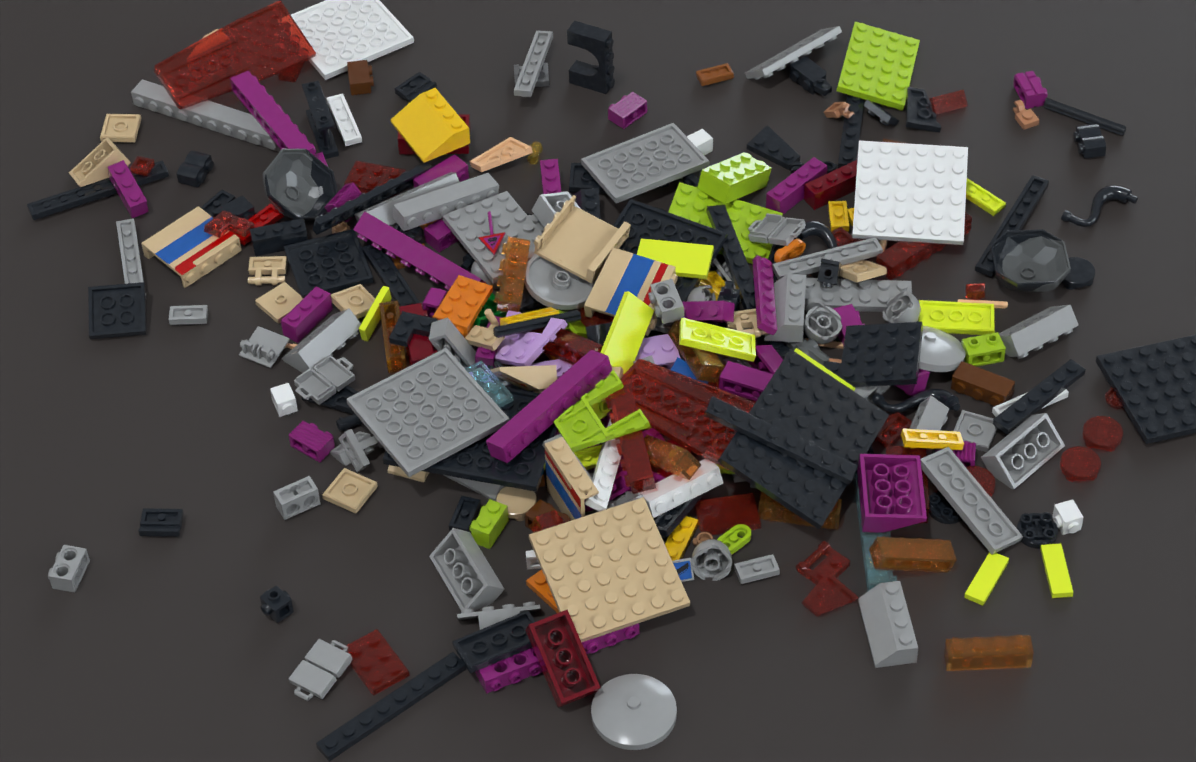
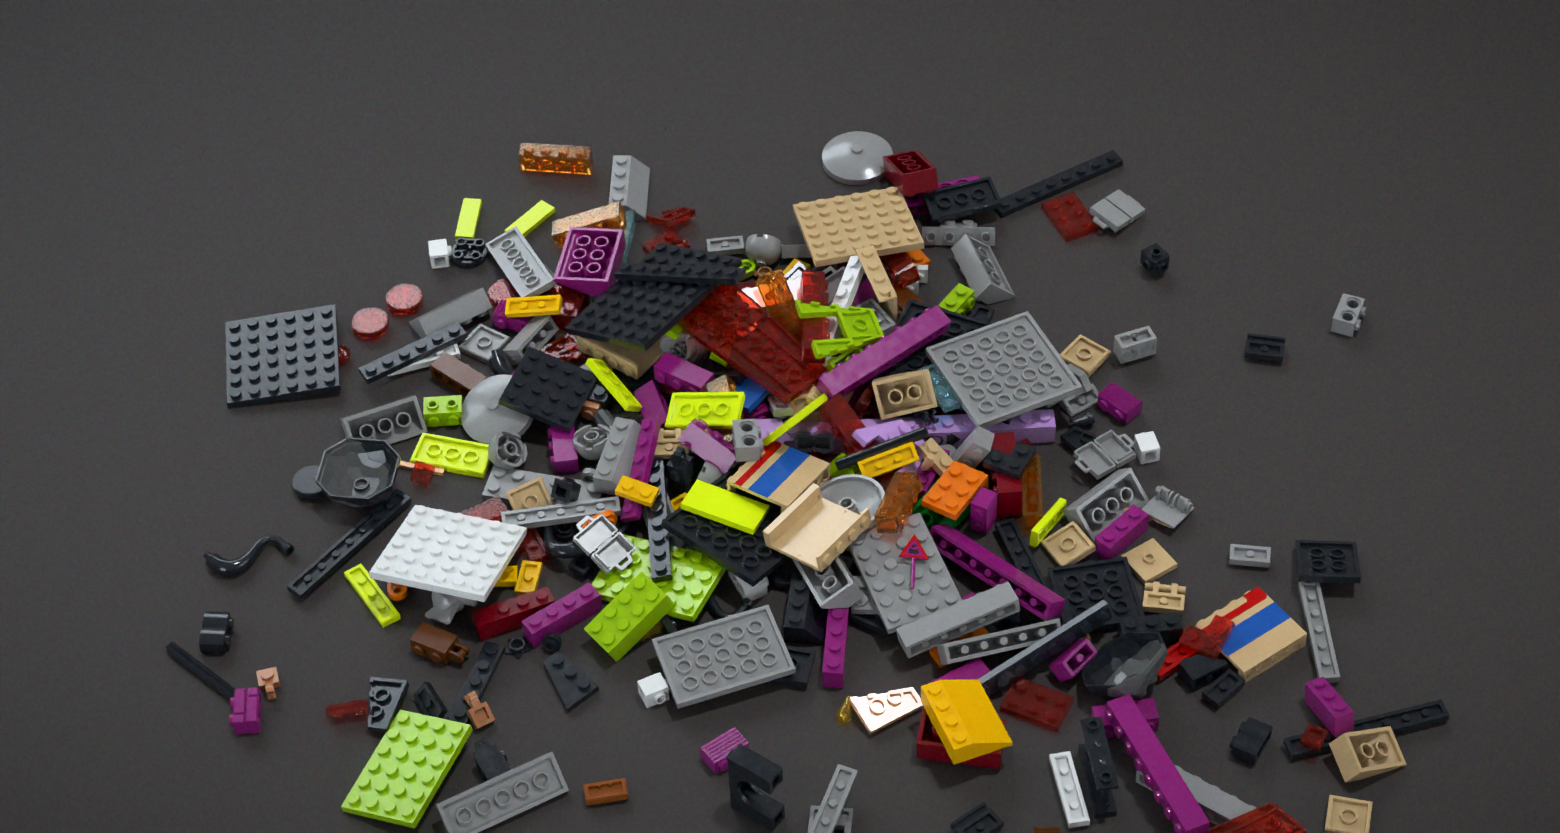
camera: 170 degrees left, 0 degrees up
(760, 264) = (637, 491): none -> yellow plate

